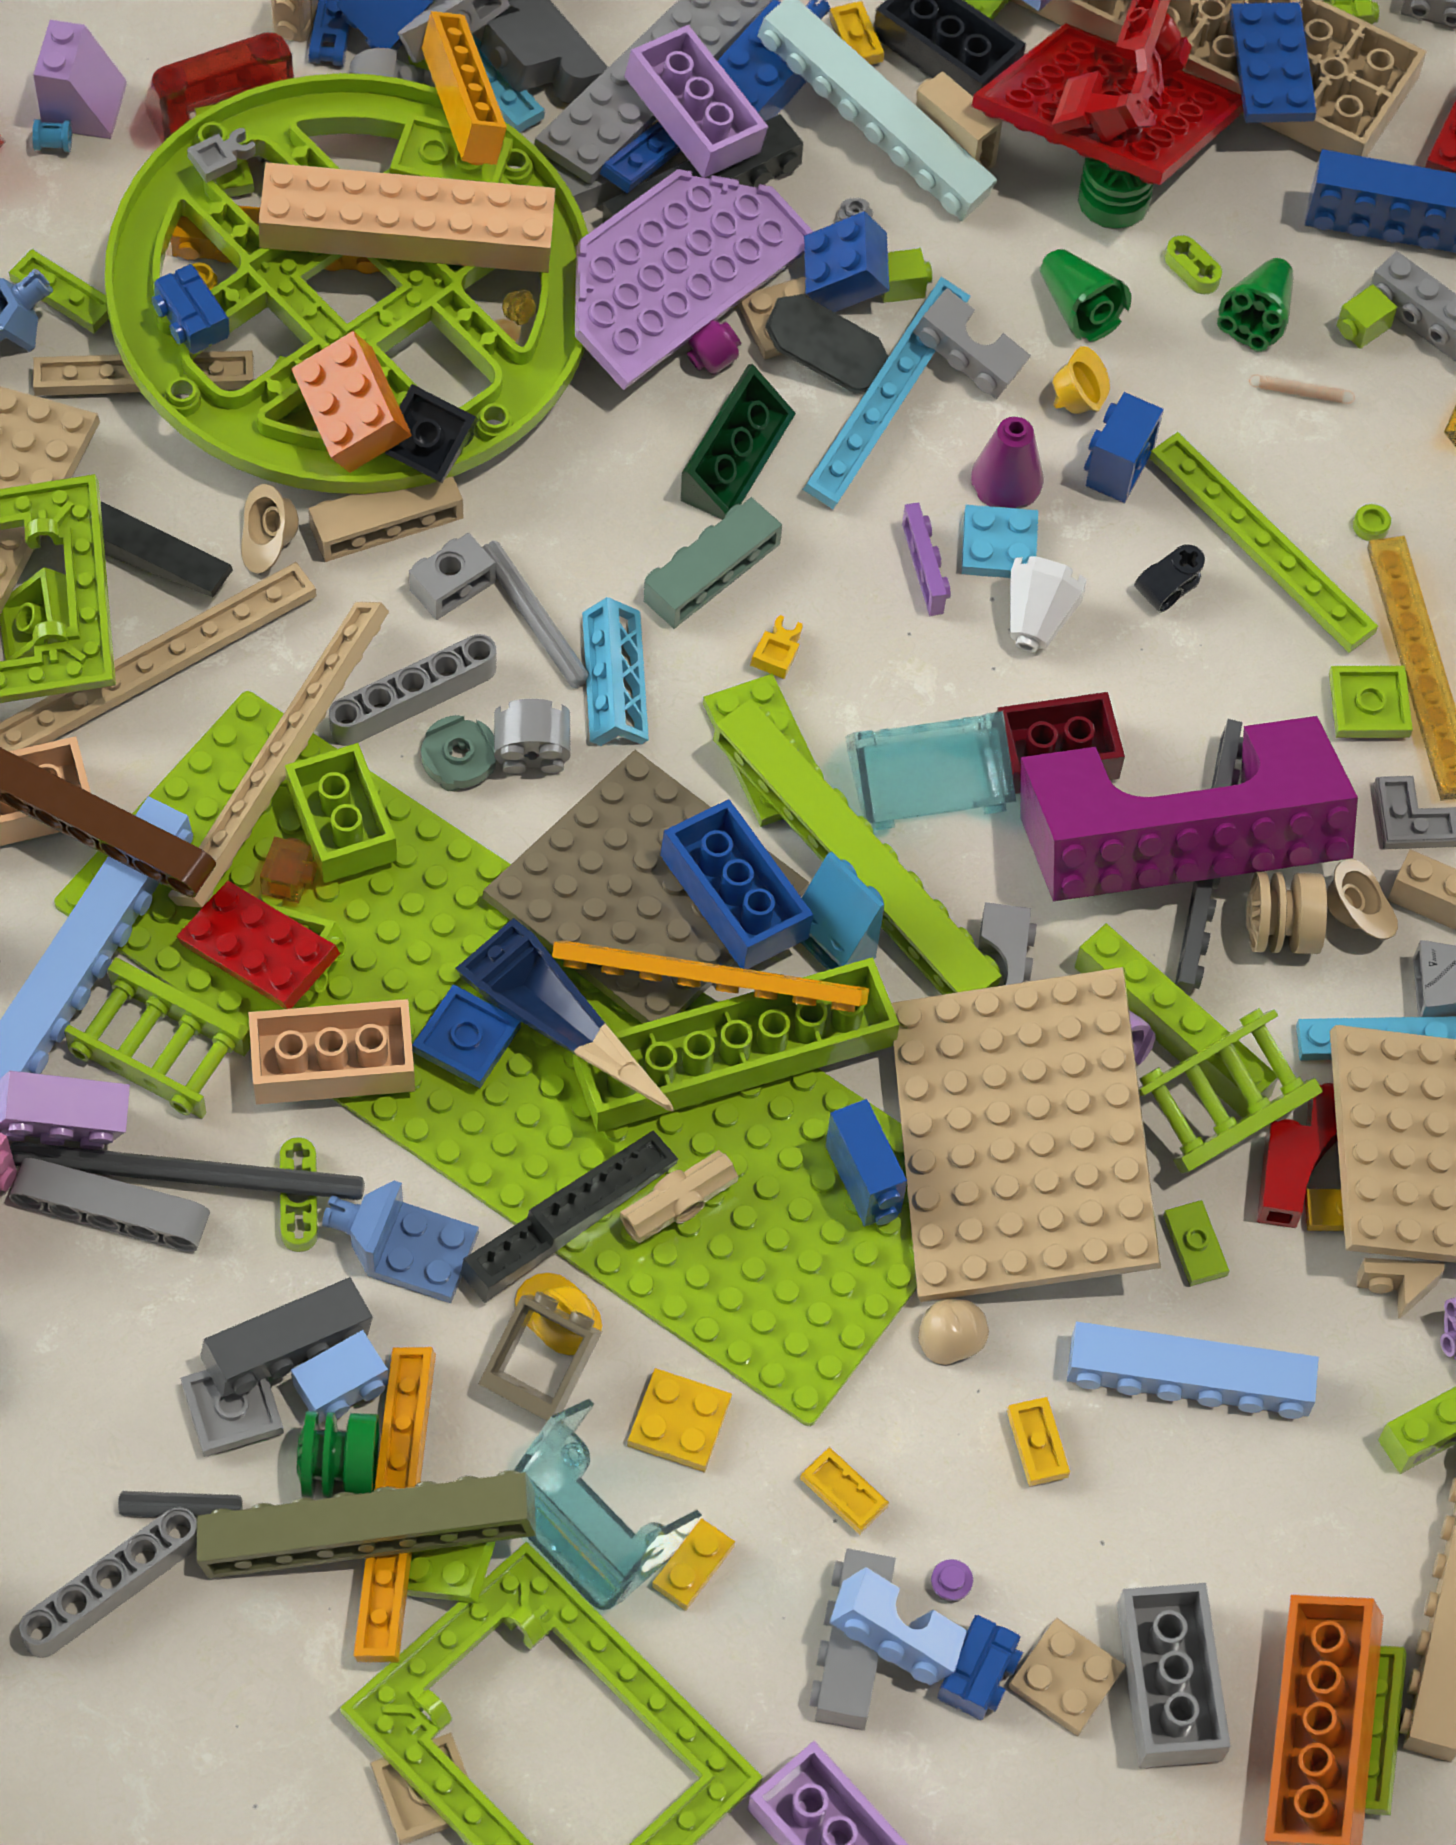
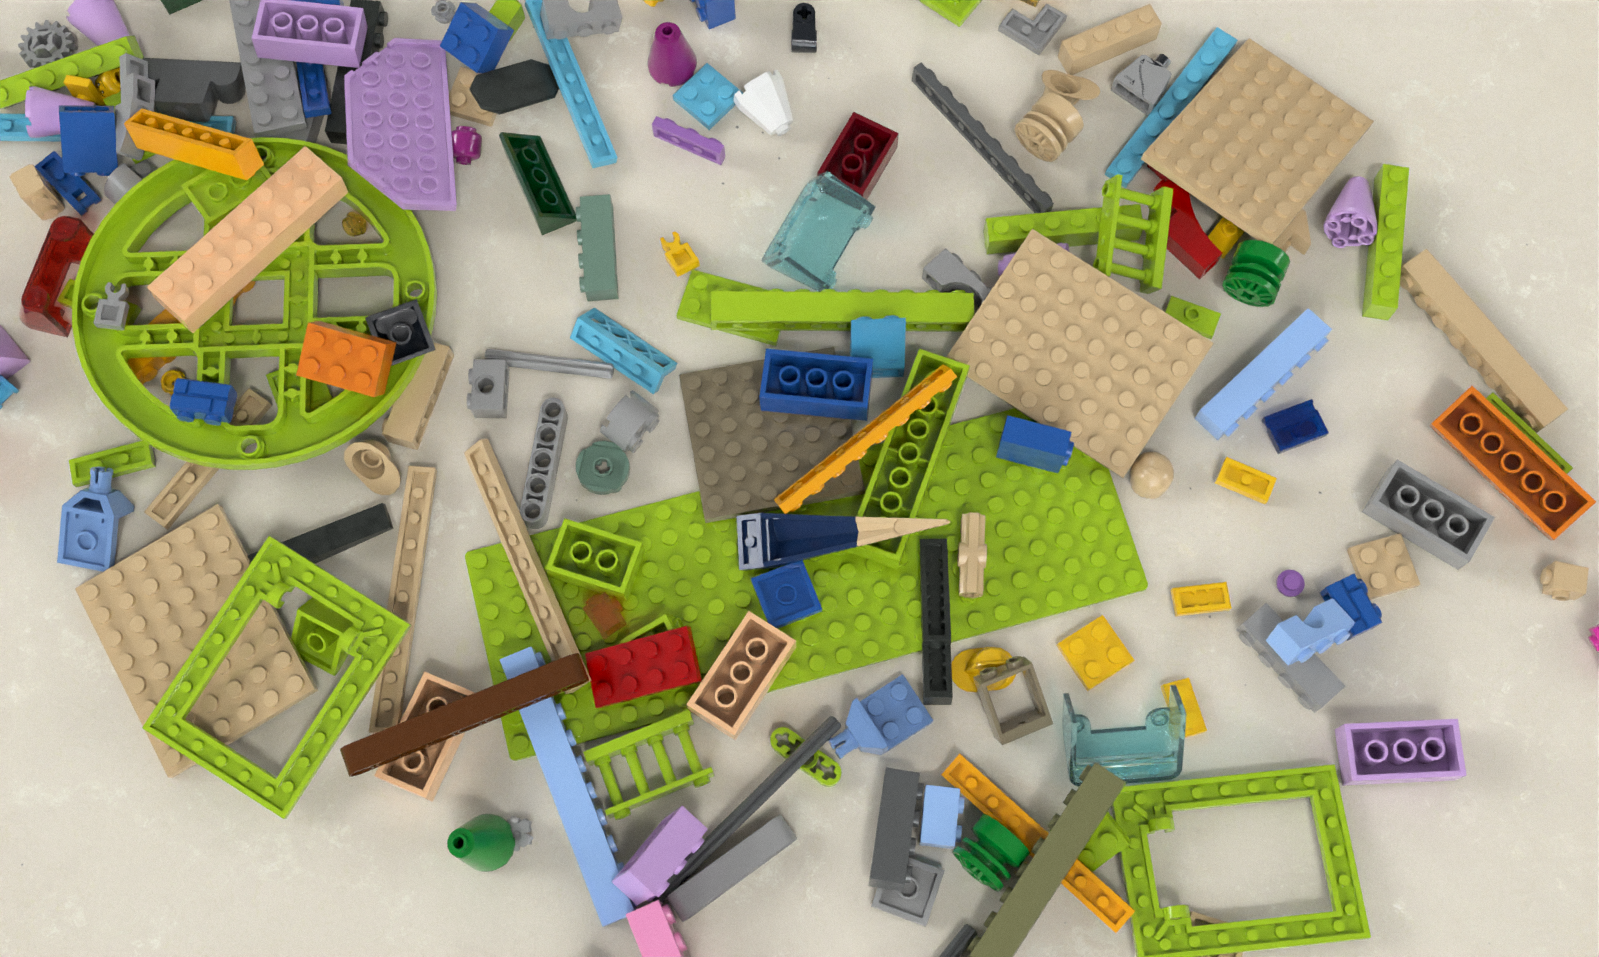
camera: 45 degrees left, 10 degrees up
(1100, 841) = (942, 183): magenta arch -> none
(1157, 1451) = (1295, 426): none -> clear blue plate
(1310, 1267) = (1256, 273): none -> green wheel

